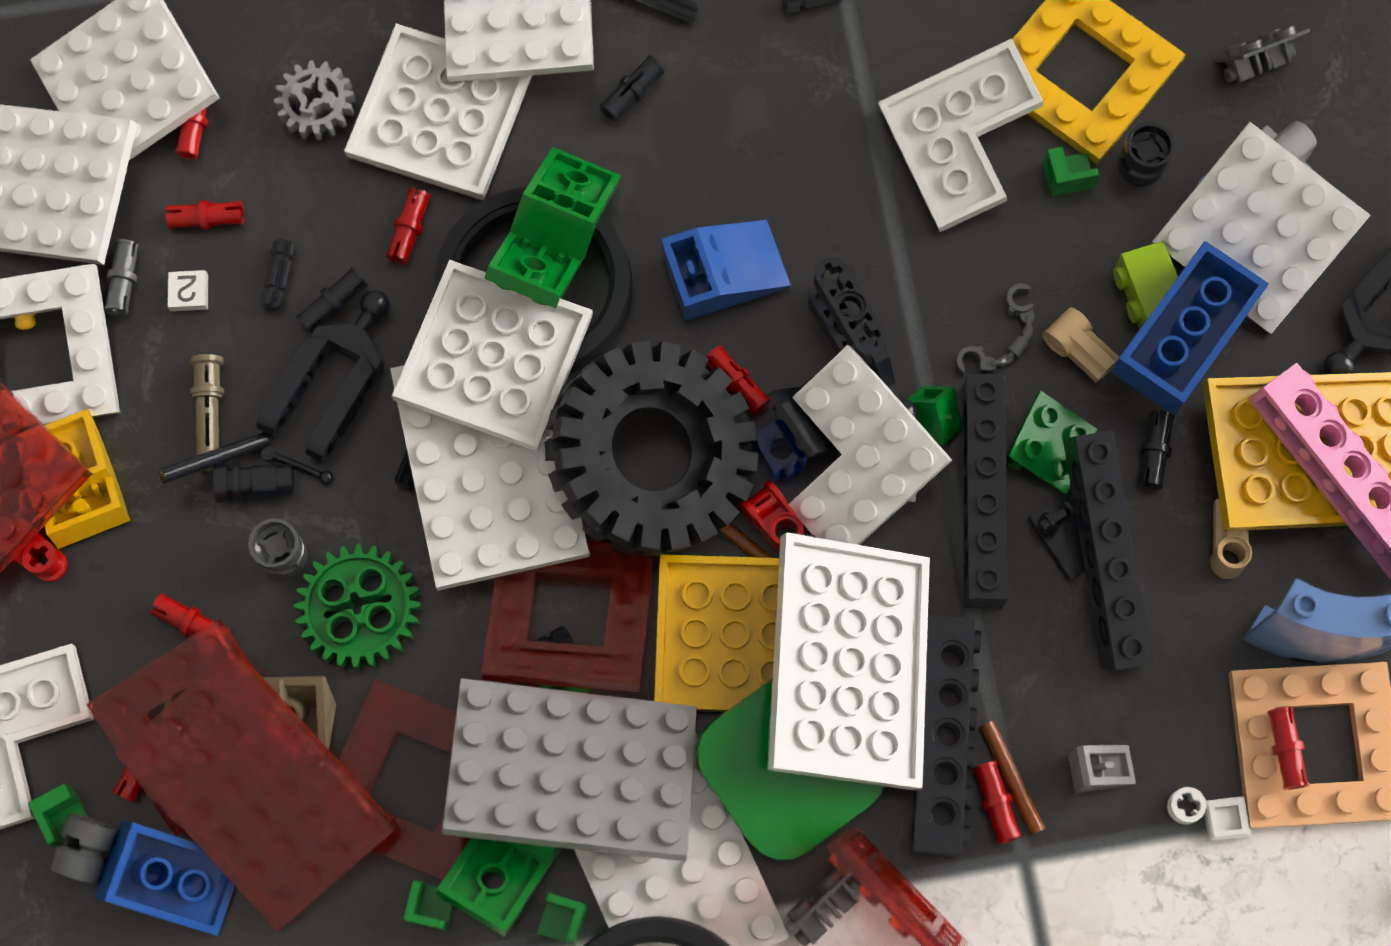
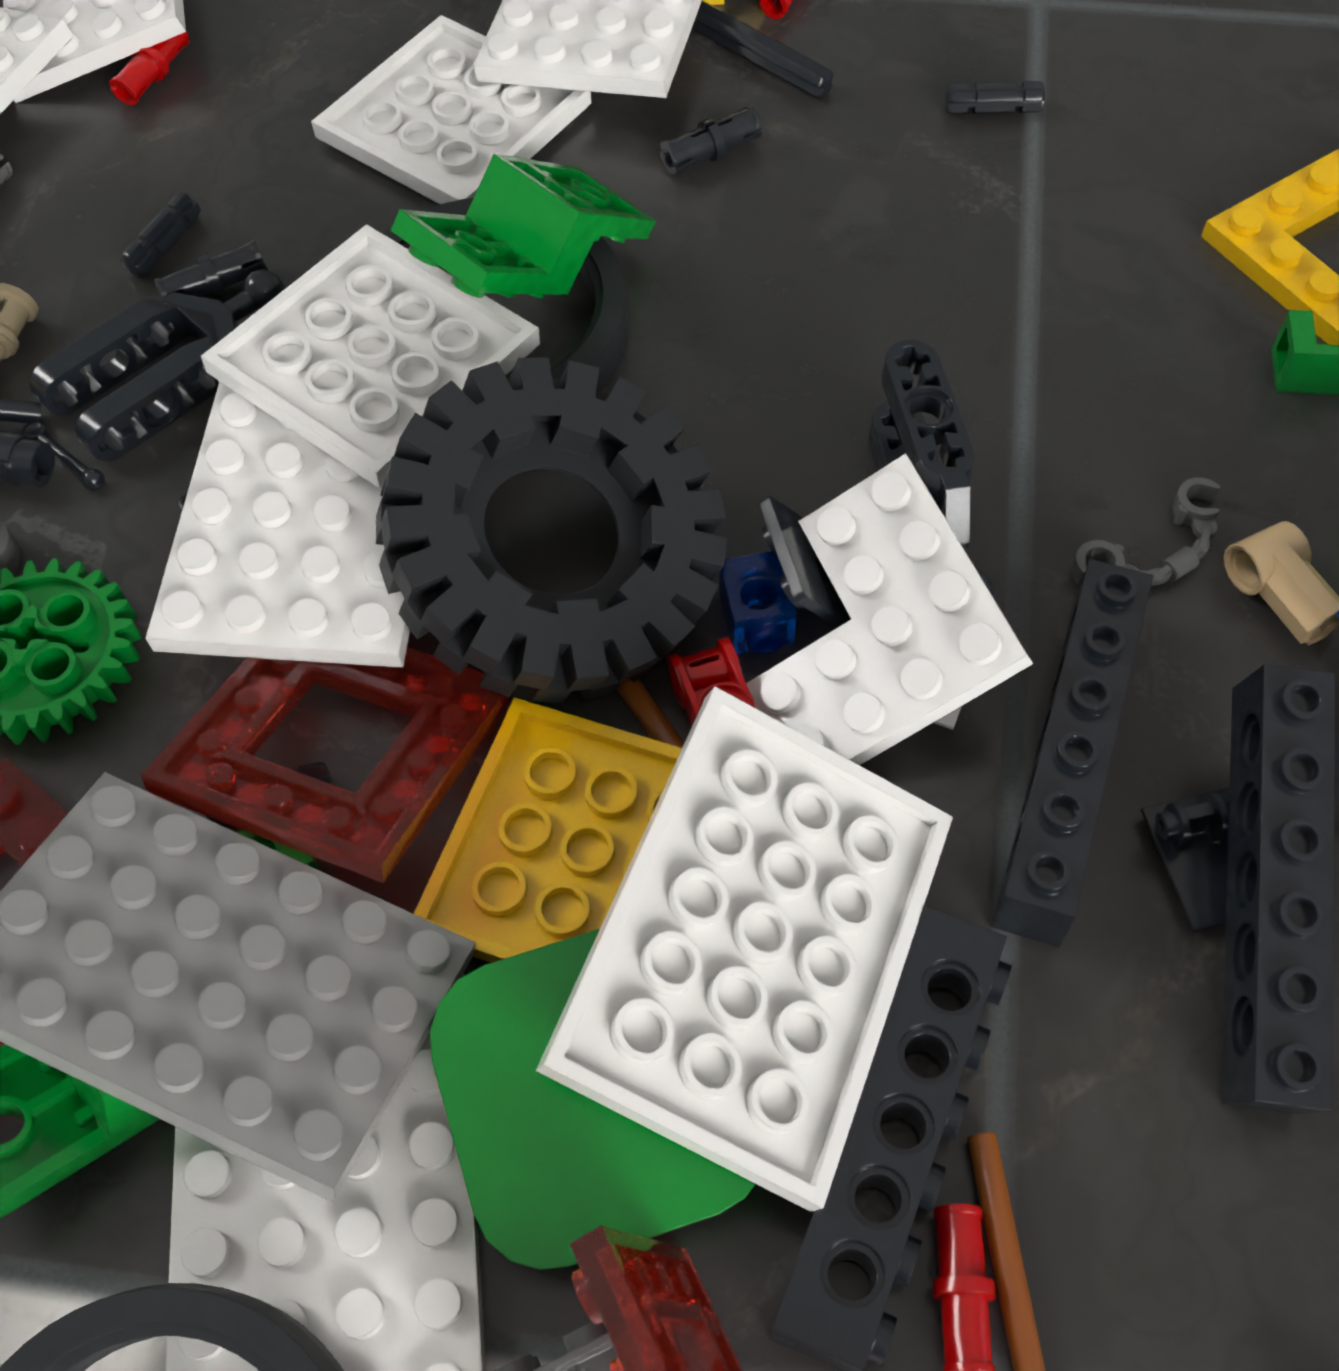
camera: 20 degrees right, 15 degrees down
(188, 290) = (42, 228): white tile -> none
(204, 214) = (109, 155): red pin -> none
(308, 87) = (304, 69): light grey gear -> none
(408, 226) = (352, 215): red pin -> none
(562, 919) = (99, 1247): green panel -> none
(723, 266) = (756, 350): blue slope -> none
(754, 397) = (740, 522): red pin -> none
(937, 411) = (1033, 612): green panel -> none
(941, 124) = (1131, 262): white plate -> none
(1040, 441) = (1191, 703): green hinge -> none
(1101, 767) = (1182, 1286): light grey slope -> none

